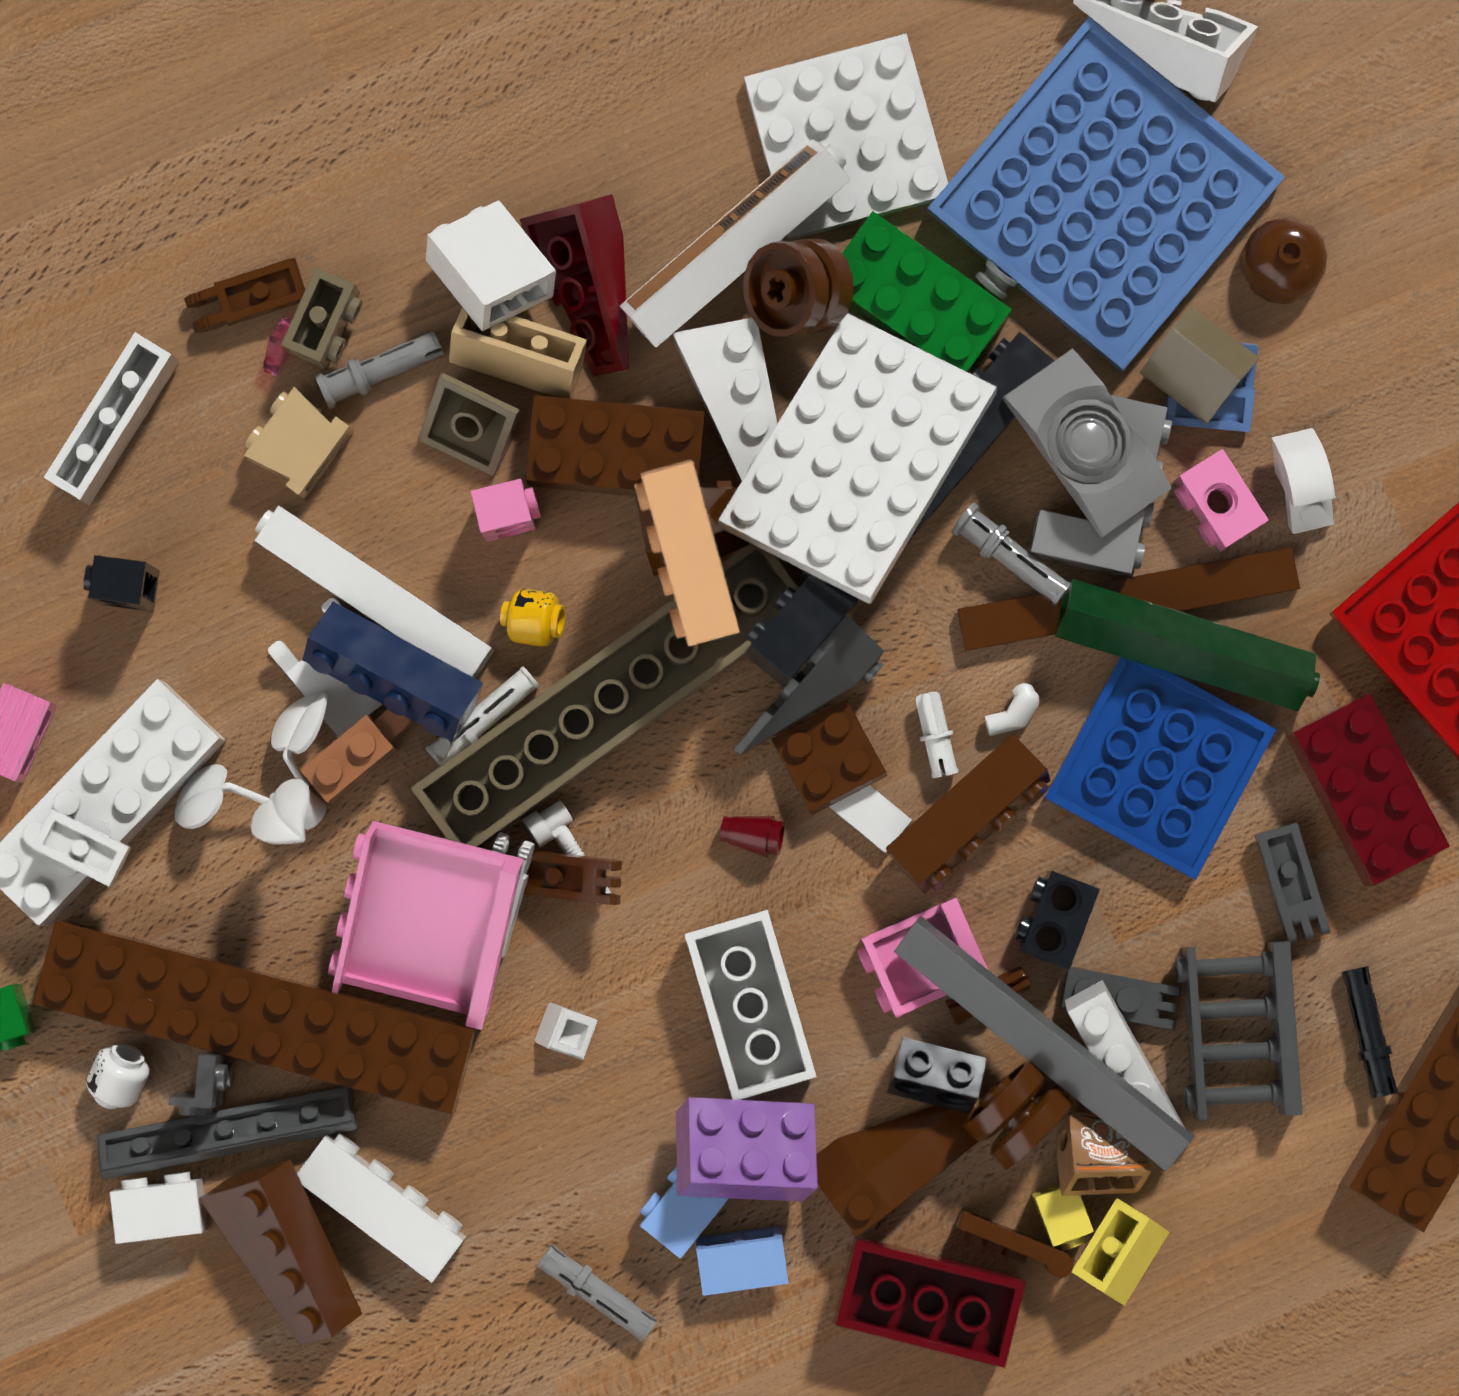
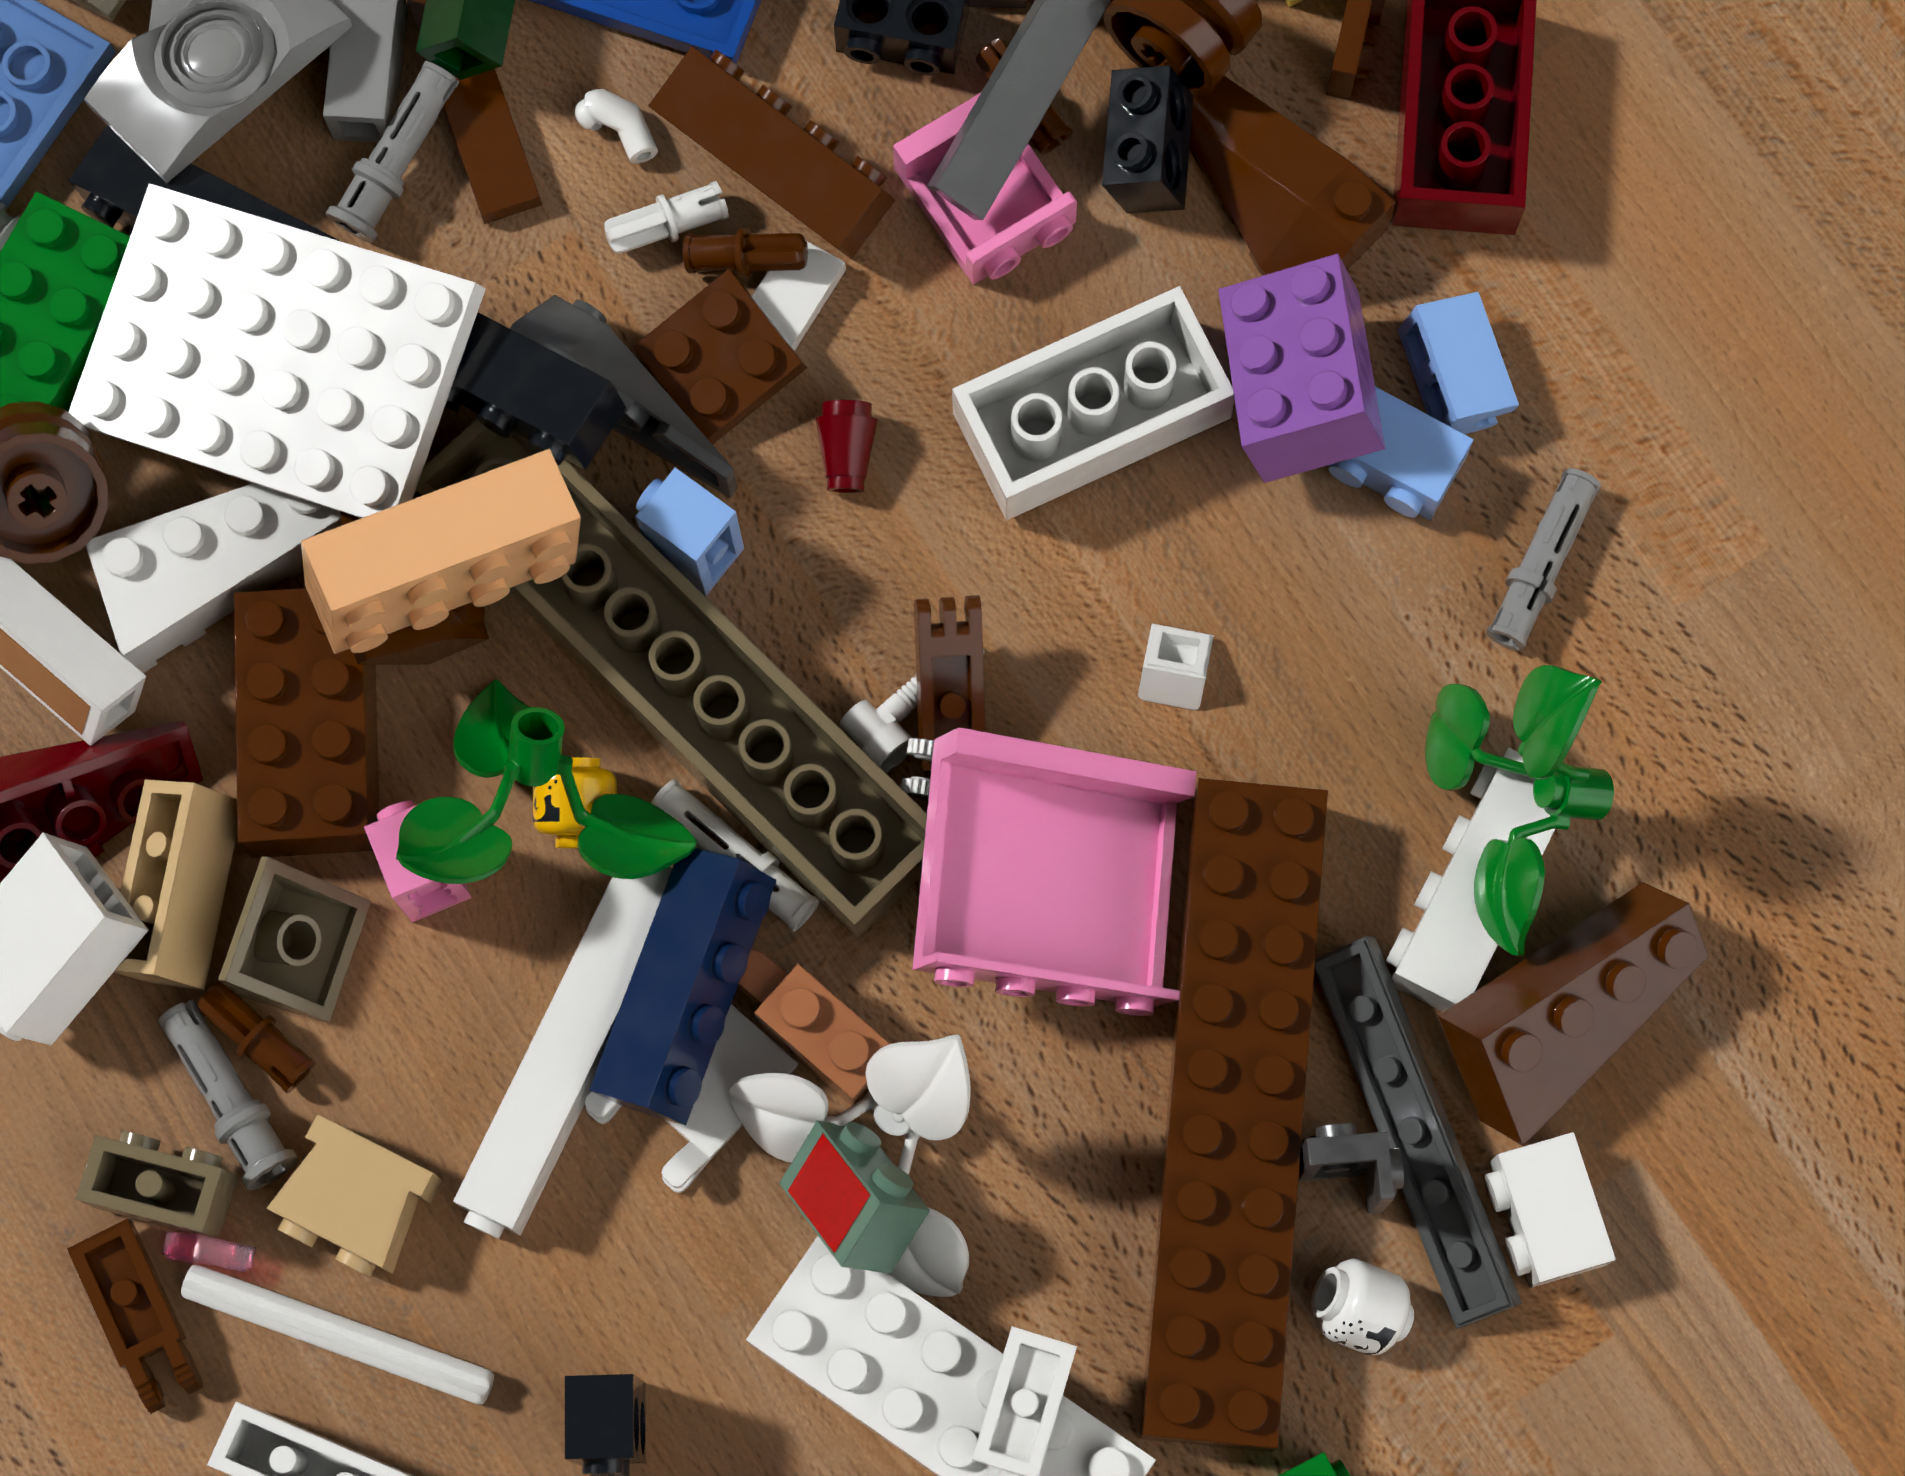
camera: 95 degrees left, 10 degrees down
(213, 422) = (337, 1334): none -> white axle
(235, 761) = (854, 1196): none -> sand green brick
(411, 392) = (256, 1037): none -> reddish brown axle
(426, 1262) = (1547, 722): none -> green plant
(586, 579) = (502, 735): none -> green plant
(701, 717) = (690, 528): none -> light blue brick
(900, 784) = (744, 252): none -> reddish brown axle

